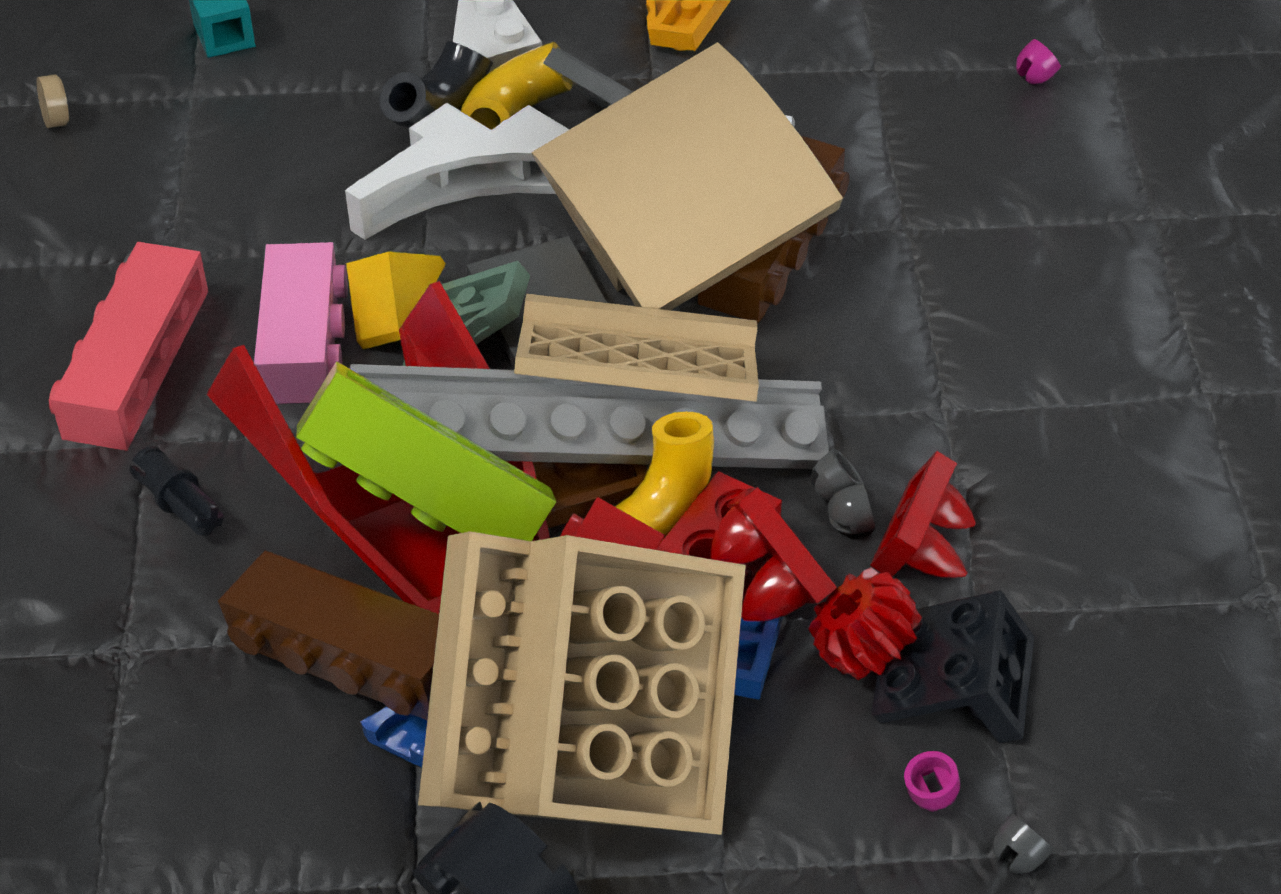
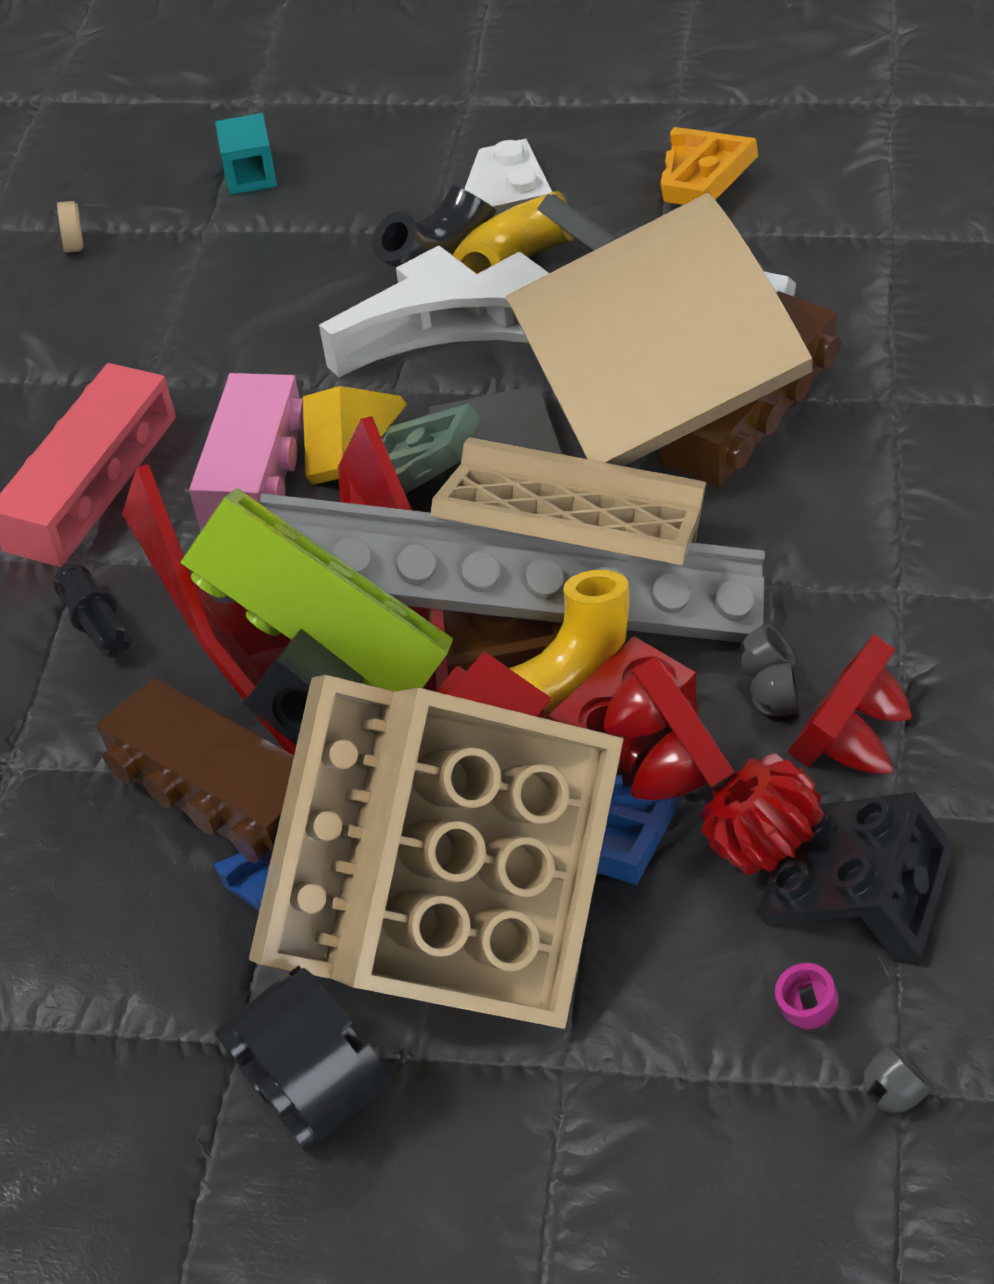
camera: 15 degrees right, 0 degrees up
(399, 551) = (284, 686): none -> black brick

